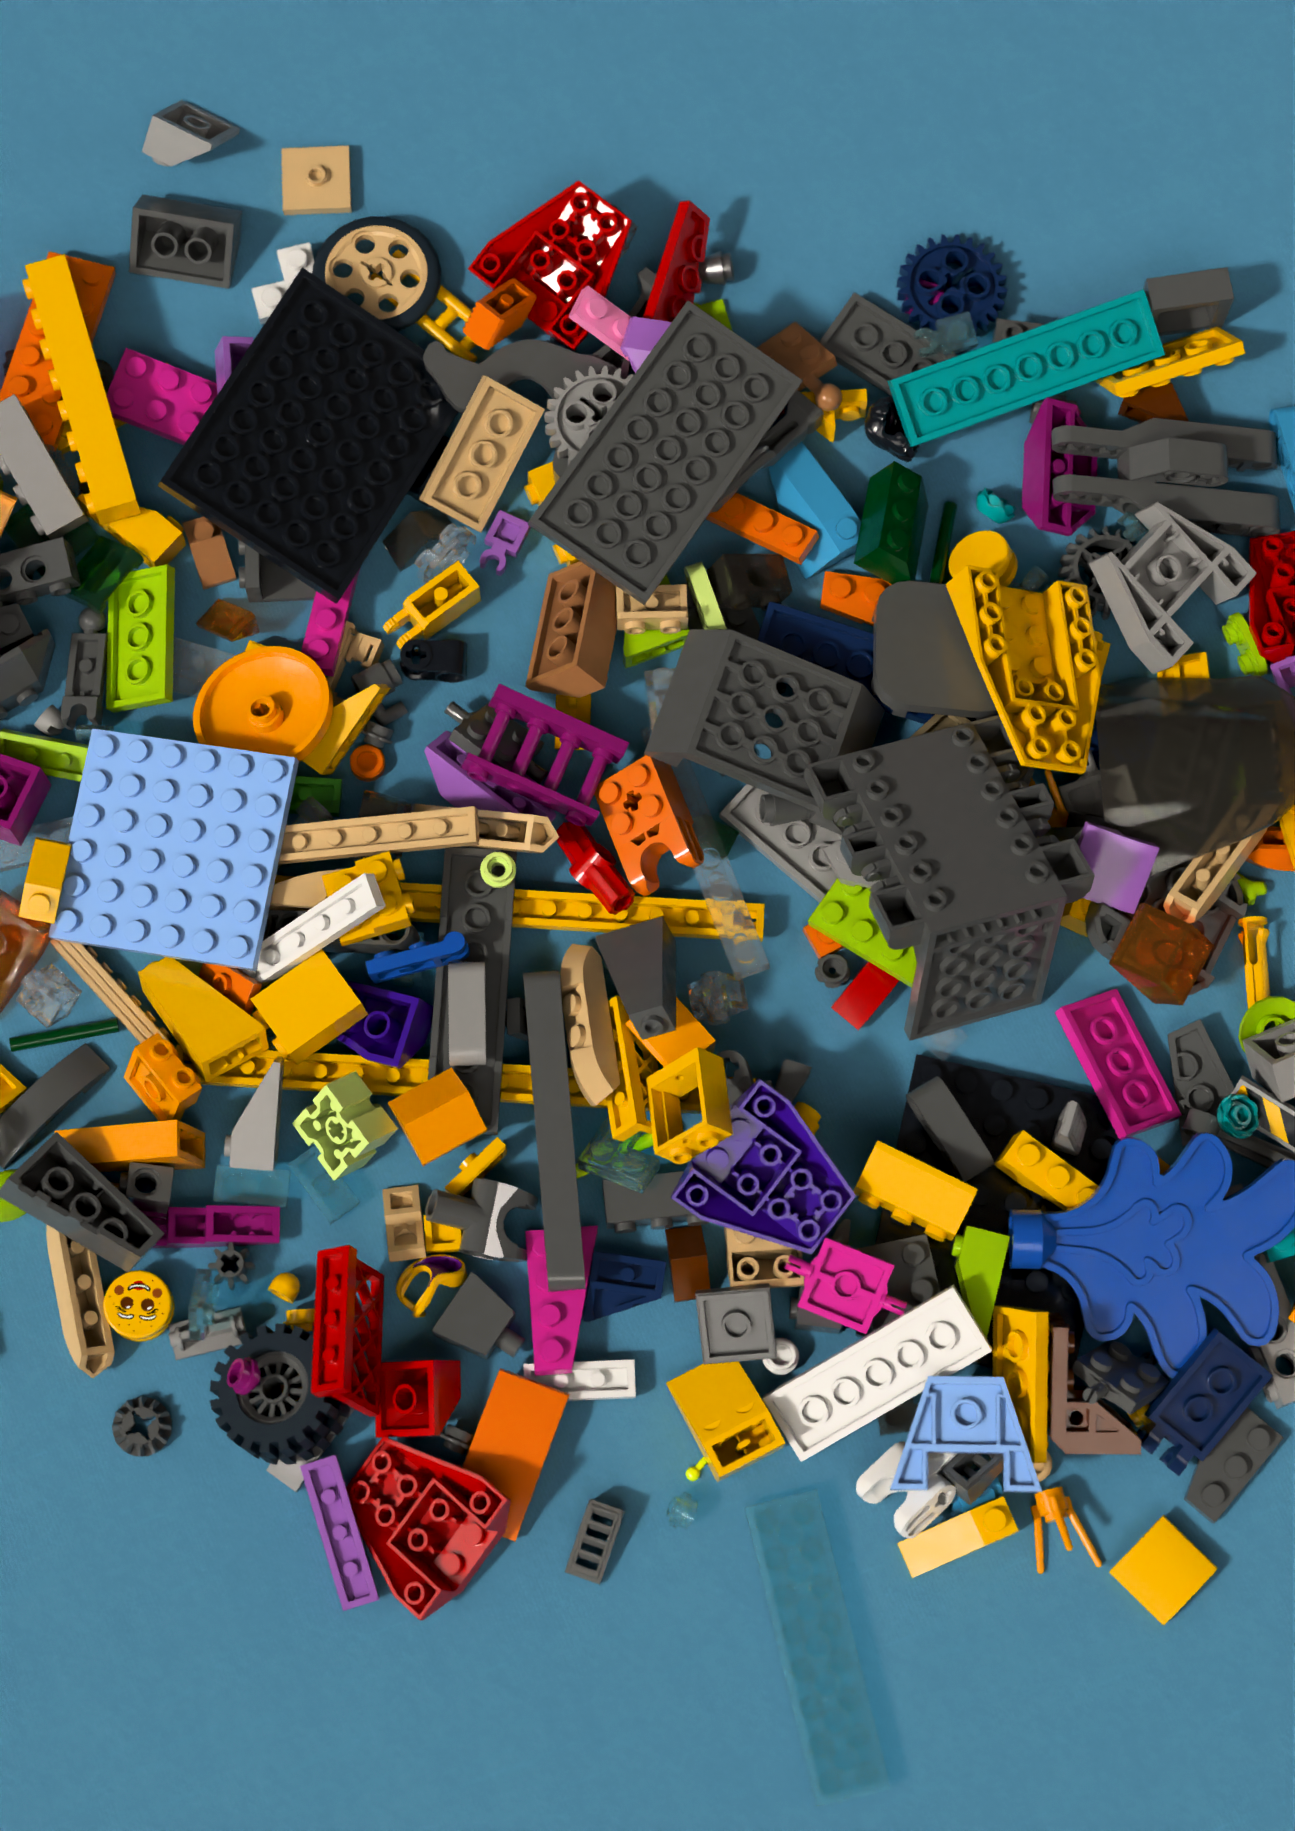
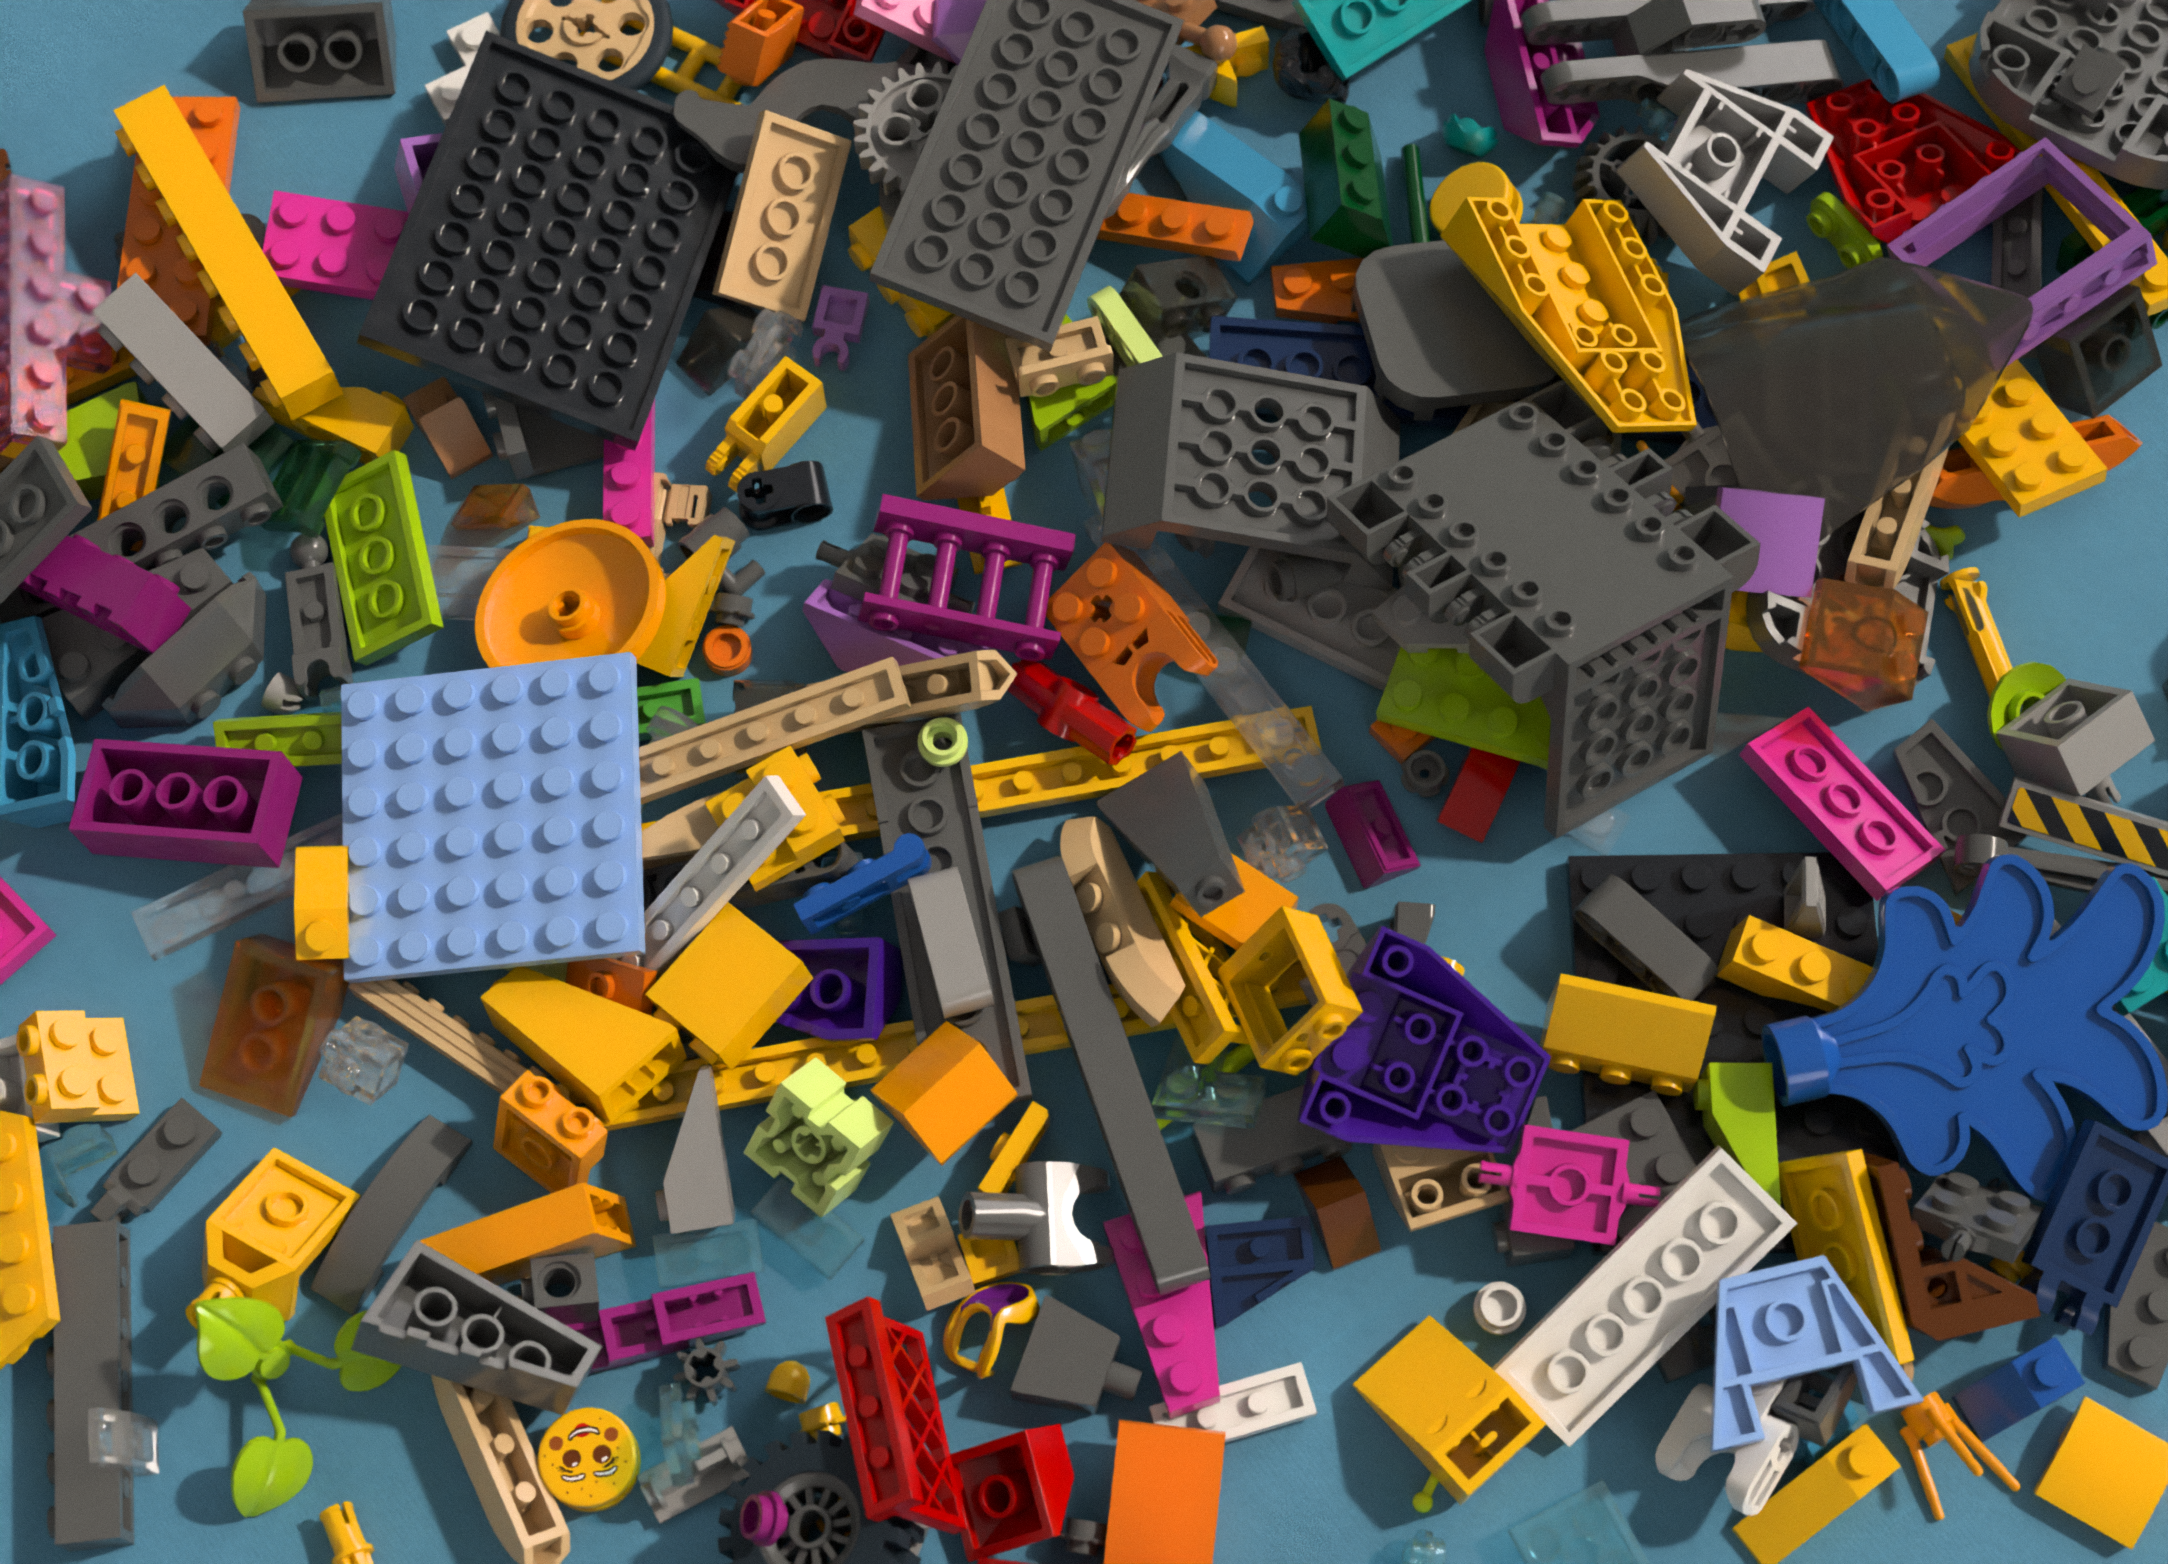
camera: 10 degrees left, 5 degrees down
(64, 1034) = (396, 1110): dark green bar -> none
(736, 1323) = (1430, 1276): plate -> none
(784, 1003) = (1371, 833): none -> magenta slope
(1117, 1500) = (2018, 1389): none -> blue slope
(1237, 1116) = (2027, 829): teal plate -> none

